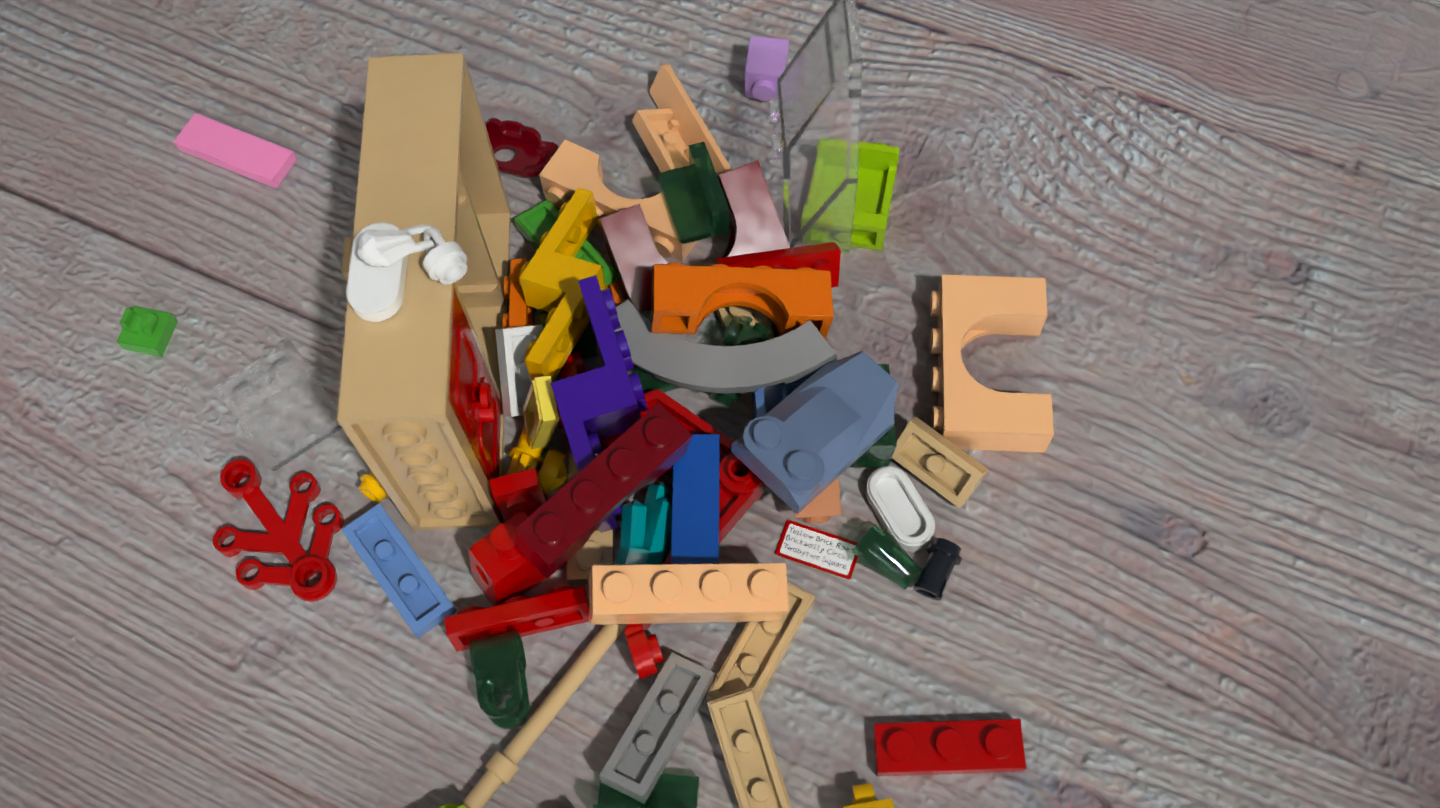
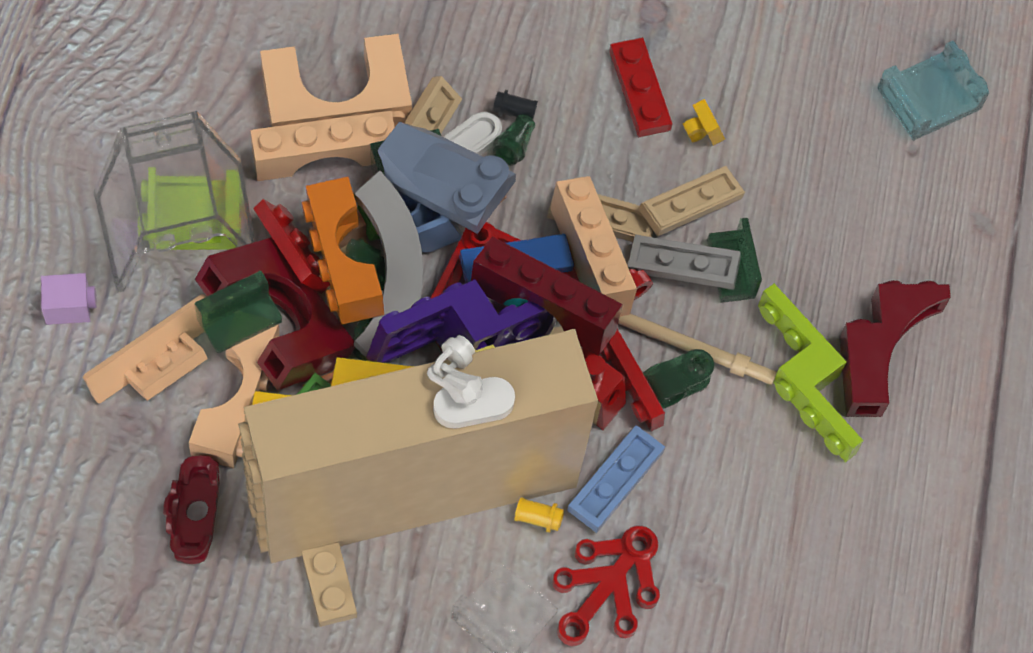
camera: 115 degrees left, 0 degrees up
(817, 549) = (518, 197): white sticker -> none
(911, 330) = (286, 148): none -> light nougat arch

